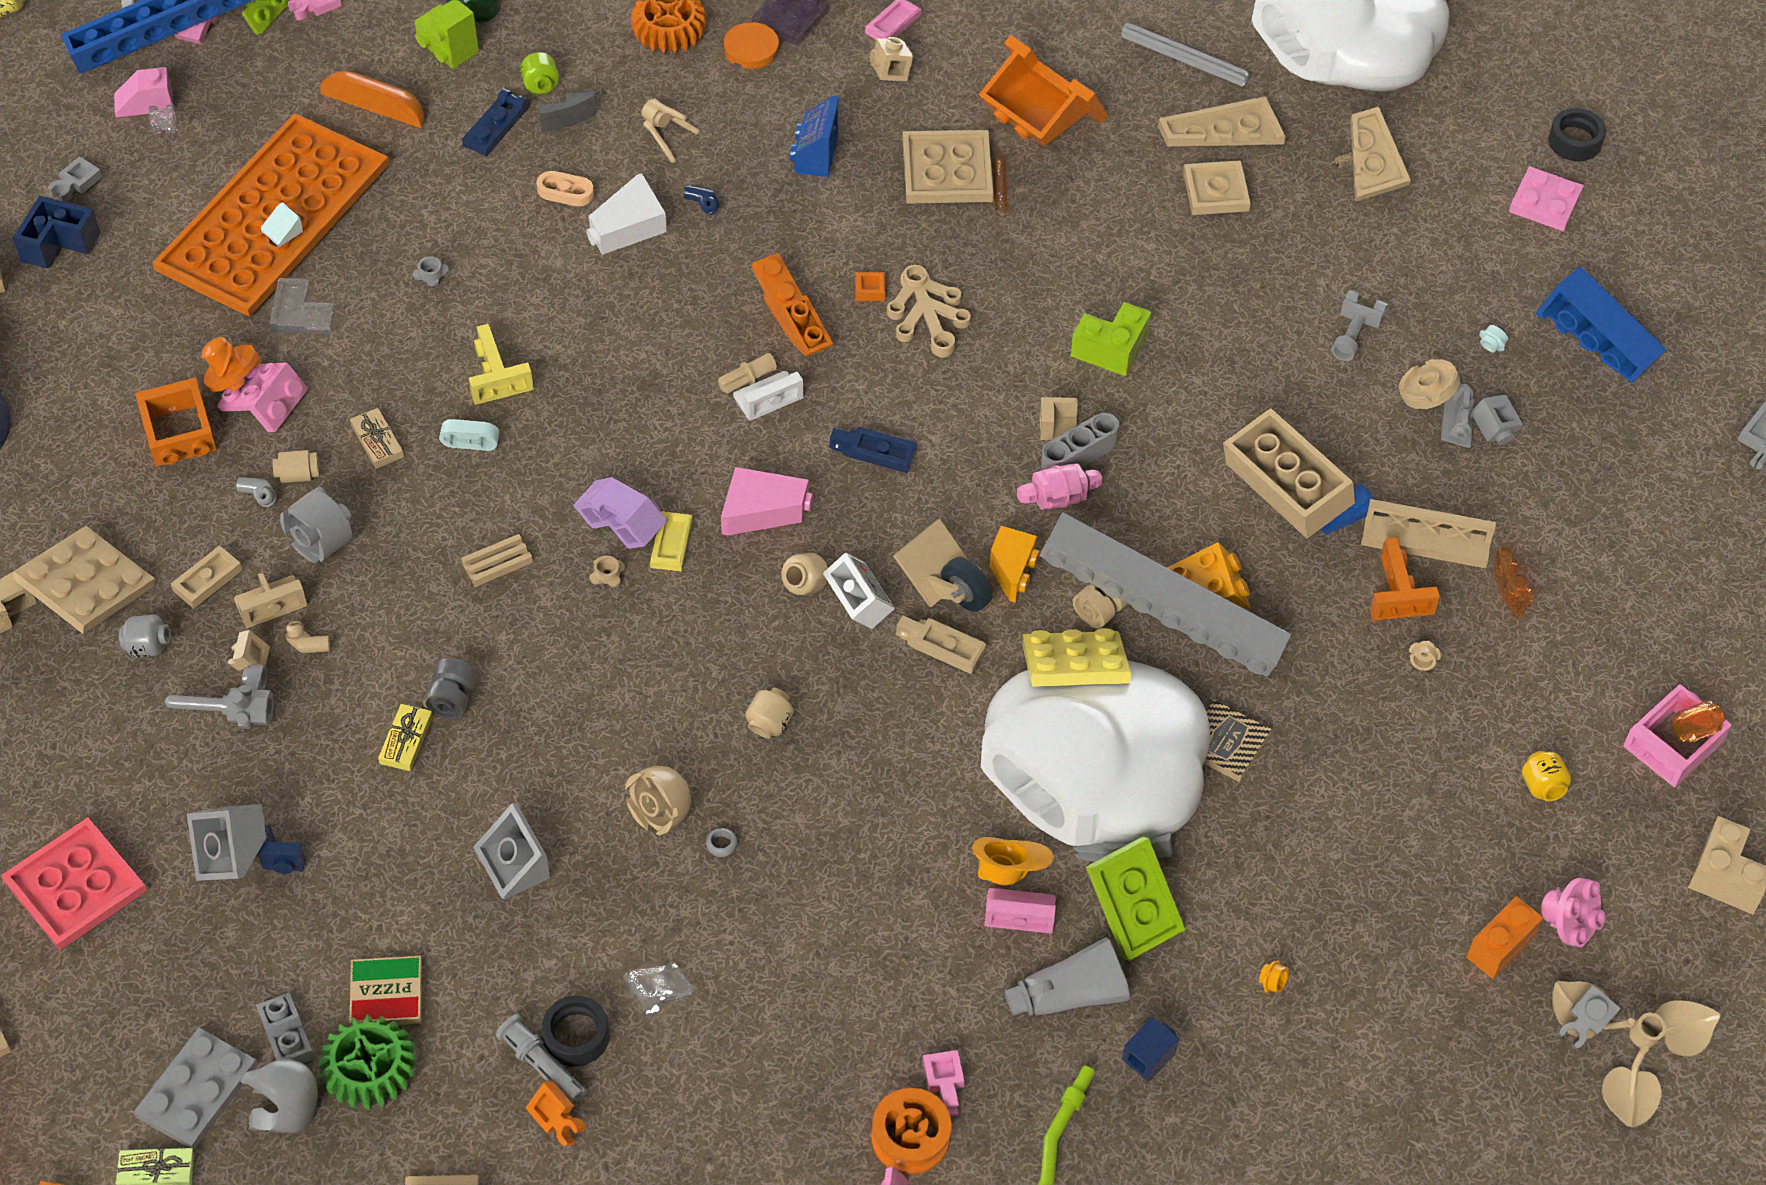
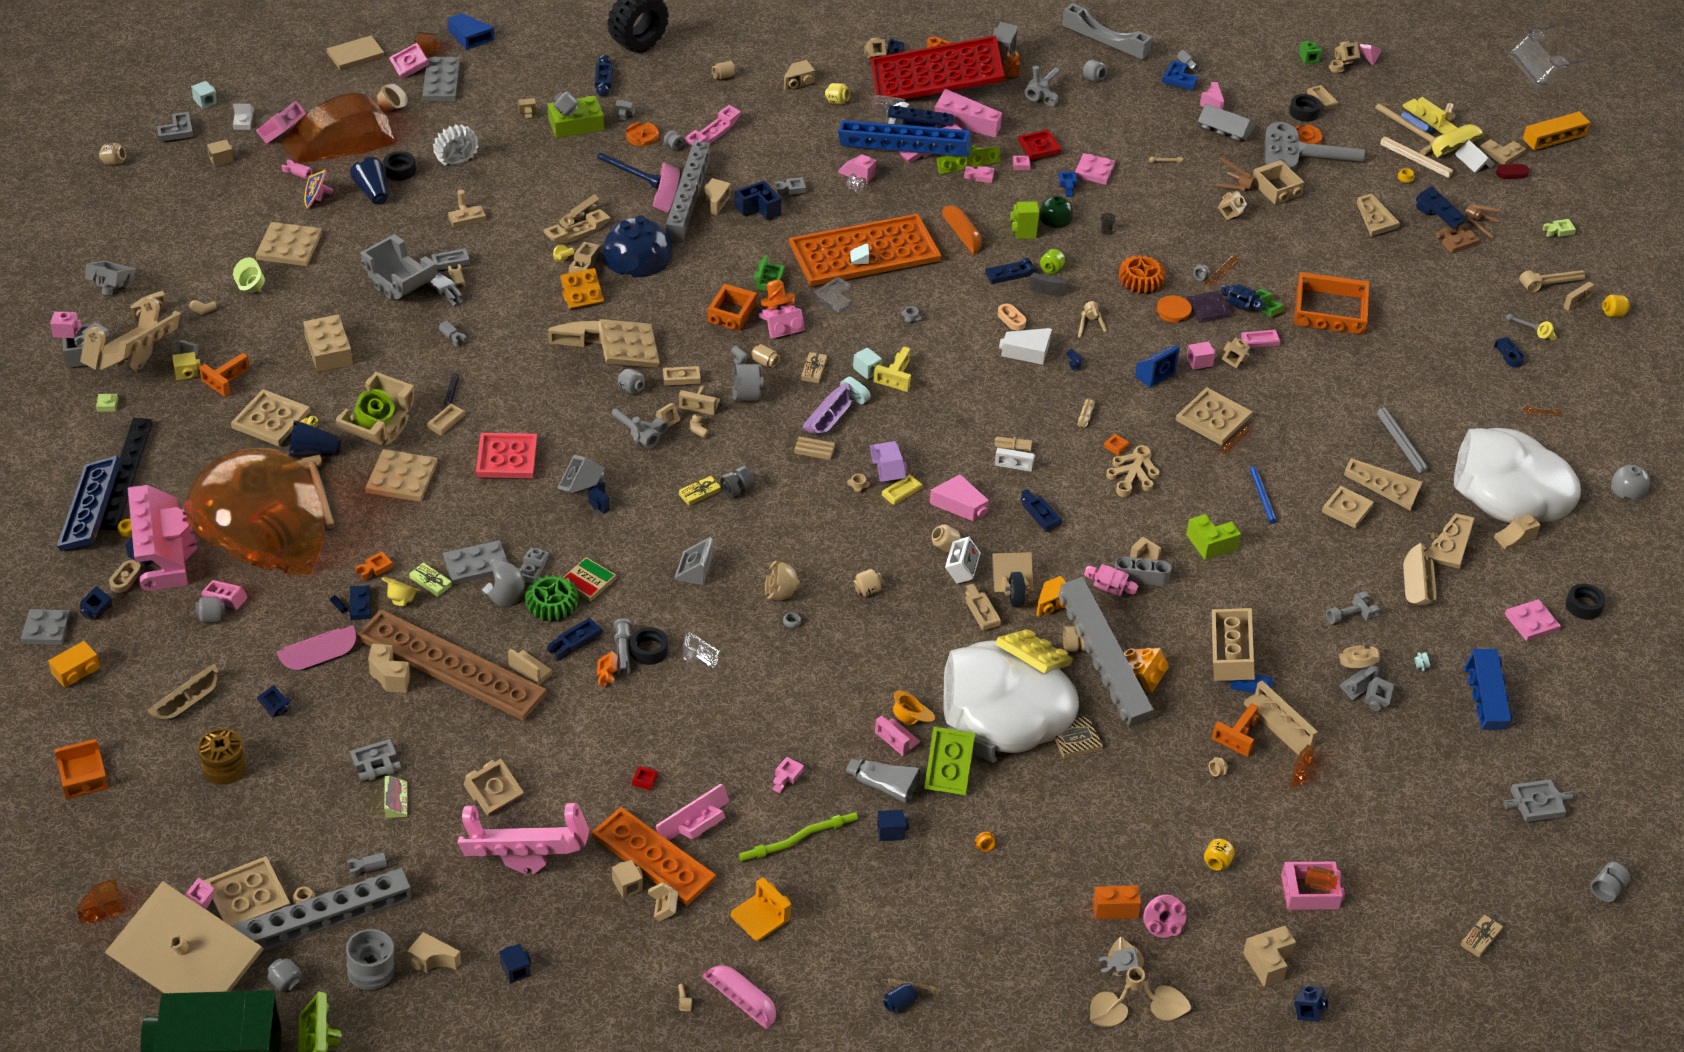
camera: 40 degrees right, 10 degrees down
(180, 337) = (767, 272): none -> bright green bracket
(448, 383) = (865, 362): none -> light aqua brick
(461, 1098) = (574, 638): none -> dark blue hinge
(464, 492) = (829, 411): none -> lavender brick
(789, 306) = (1065, 426): orange slope -> none
(792, 264) = (1086, 413): none -> tan axle
(855, 90) = (1201, 355): none -> bright pink brick
(917, 1150) = (750, 771): orange wheel -> none
(1036, 97) = (1294, 410): orange windscreen -> none
(1106, 238) = (1263, 495): none -> blue bar
(1383, 229) = (1419, 577): none -> tan brick
(1425, 92) = (1518, 532): none -> tan arch

